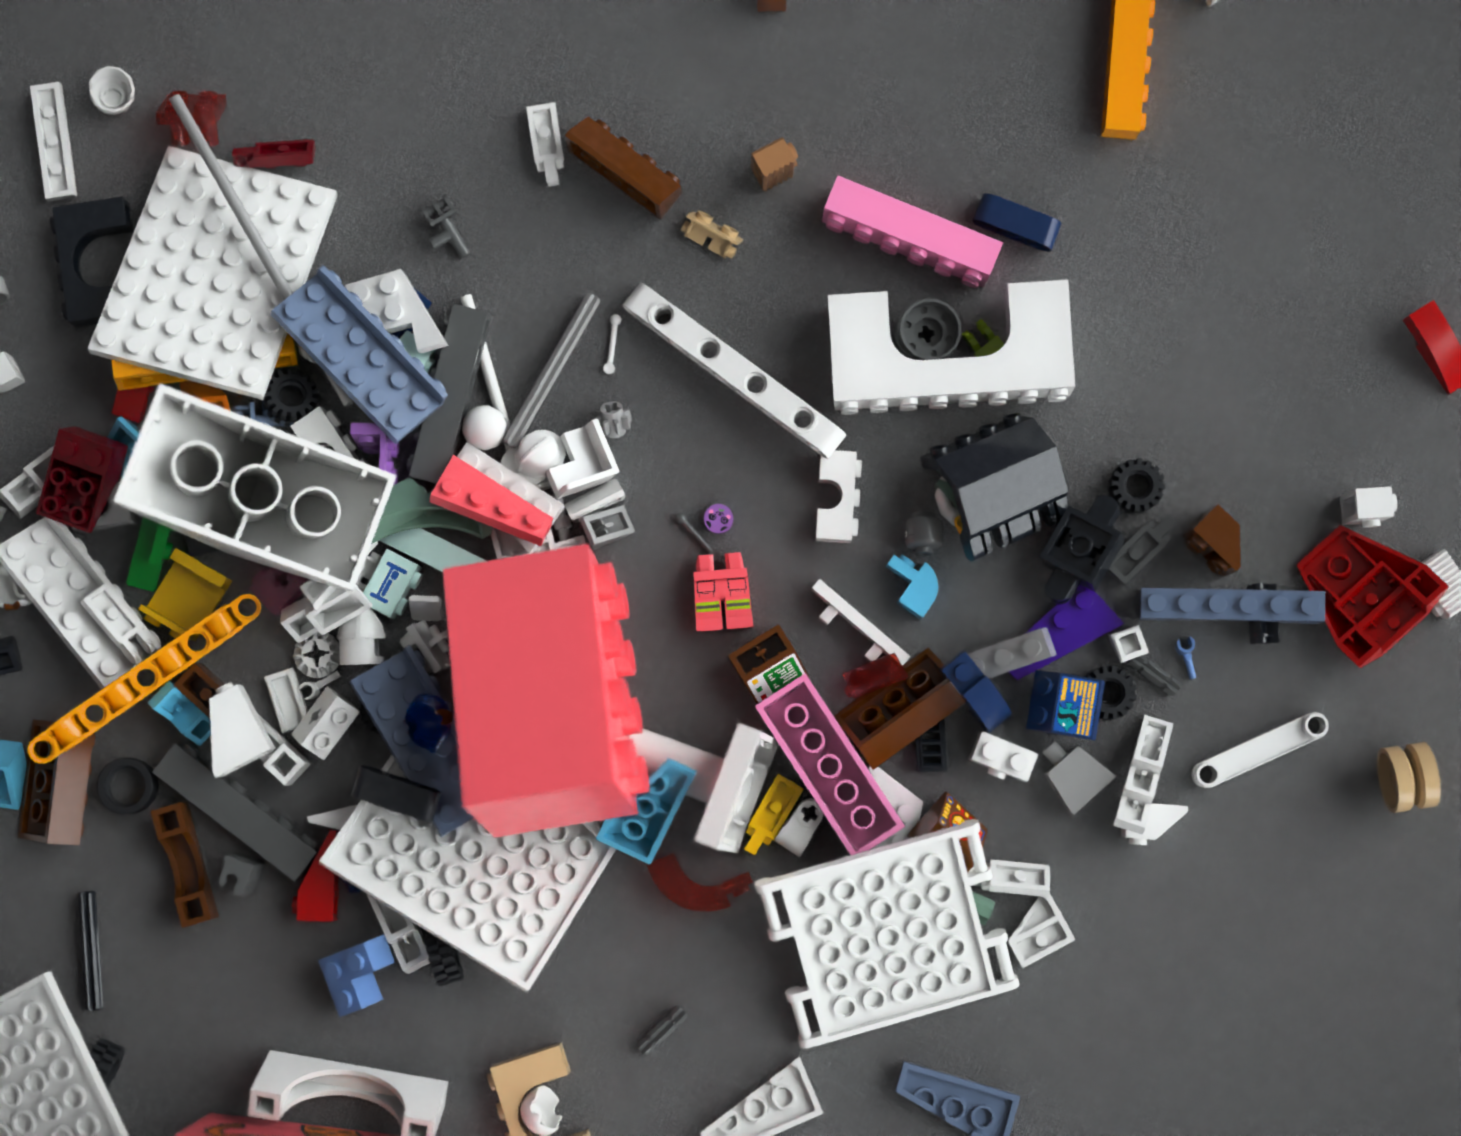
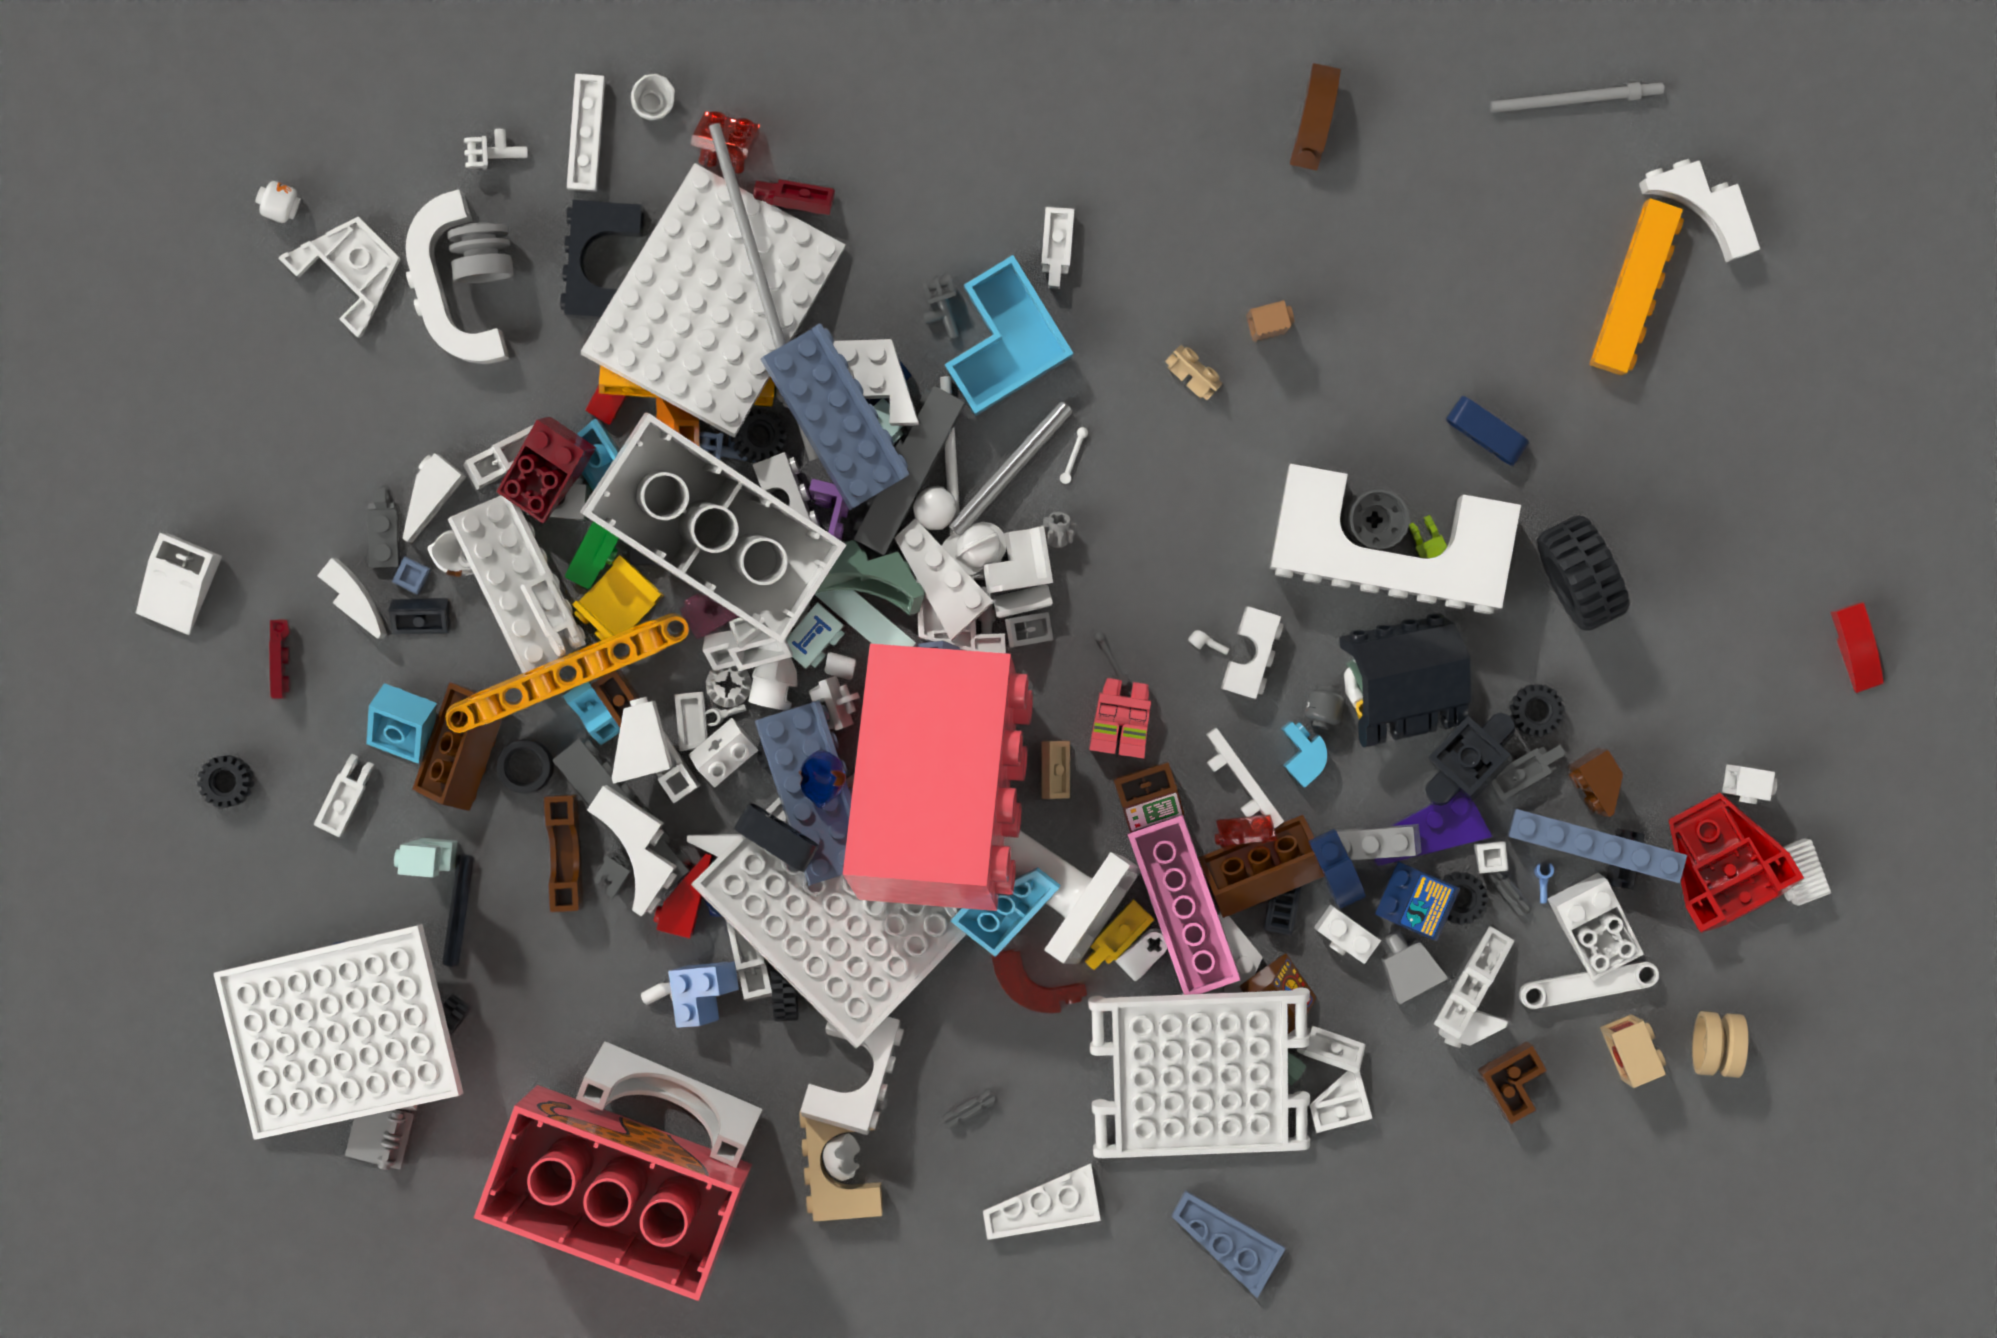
camera: 15 degrees right, 5 degrees up
(39, 900) = (426, 857): none -> light aqua arch
(253, 824) = (636, 831): none -> white arch
(311, 987) = (656, 993): none -> white arm
(488, 502) = (921, 582): coral wing -> none
(532, 246) = (1022, 341): none -> medium azure piece
(544, 1056) = (857, 1108): none -> white arch
(623, 166) = (1125, 288): reddish brown slope -> none
(667, 660) = (1055, 769): none -> tan plate
(718, 519) = (1134, 646): medium lavender tile -> none
(734, 370) = (1183, 510): white beam -> none
(781, 495) = (1199, 638): none -> white hand
(910, 232) = (1384, 418): bright pink brick -> none
(1147, 334) = (1583, 573): none -> black tyre
(1200, 865) = (1507, 1075): none -> reddish brown brick
(1251, 687) = (1596, 925): none -> white slope
(1323, 804) = (1633, 1050): none -> tan piece

